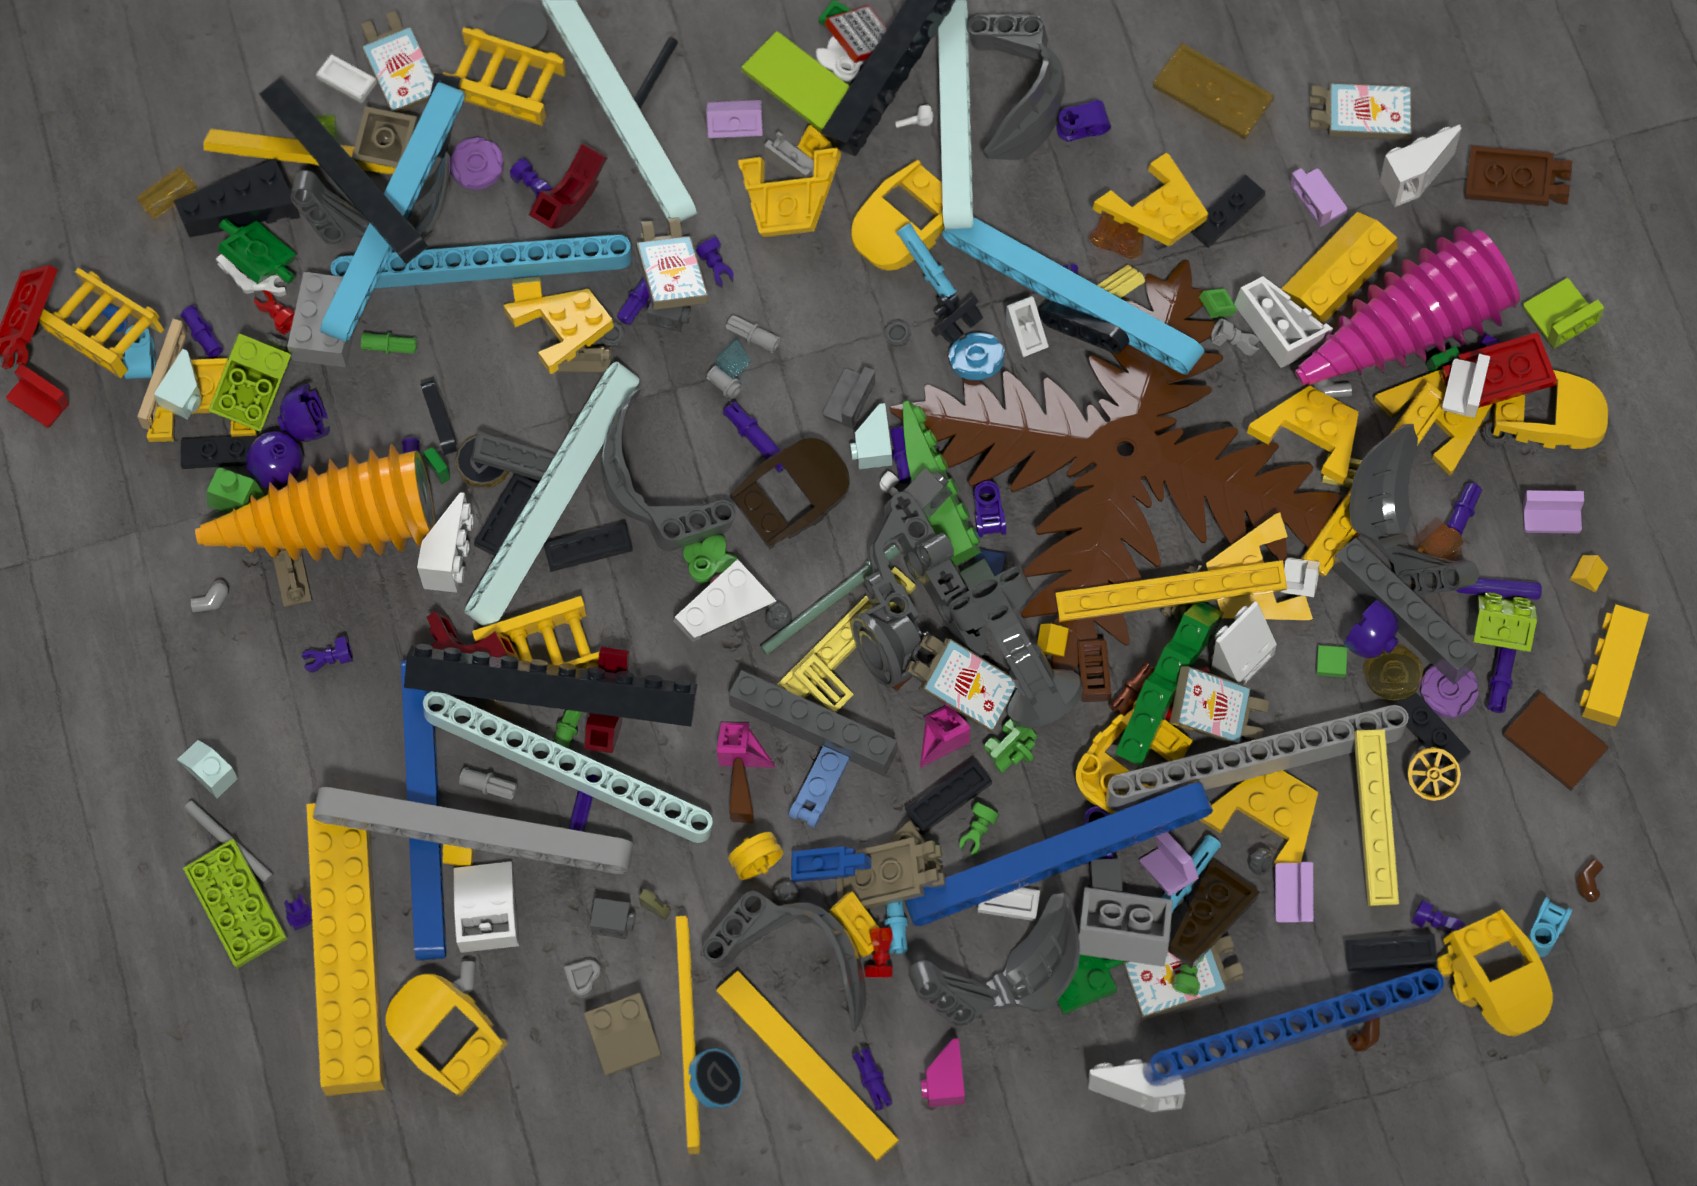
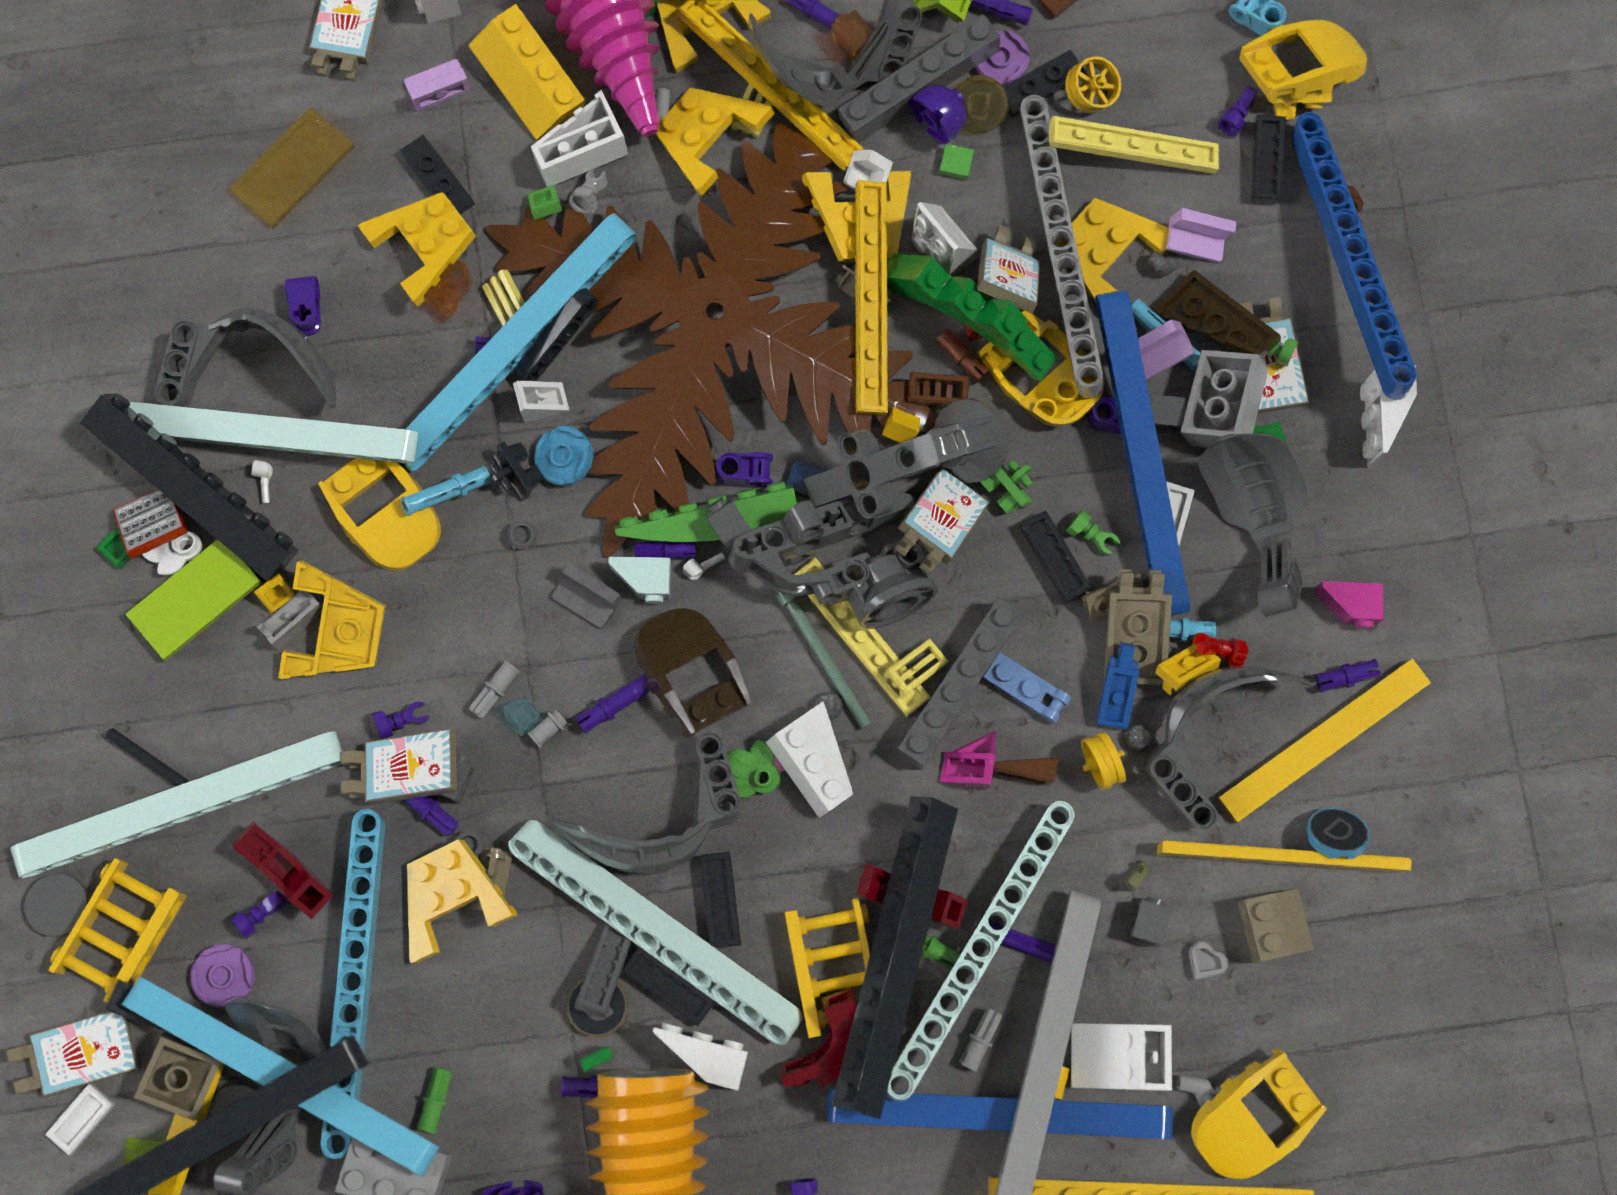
camera: 90 degrees left, 10 degrees up
(438, 417) = (537, 1051): black beam -> none
(527, 288) = (393, 933): yellow slope -> none
(734, 119) = (224, 675): lavender panel -> none
(943, 734) = (987, 553): dark pink slope -> none

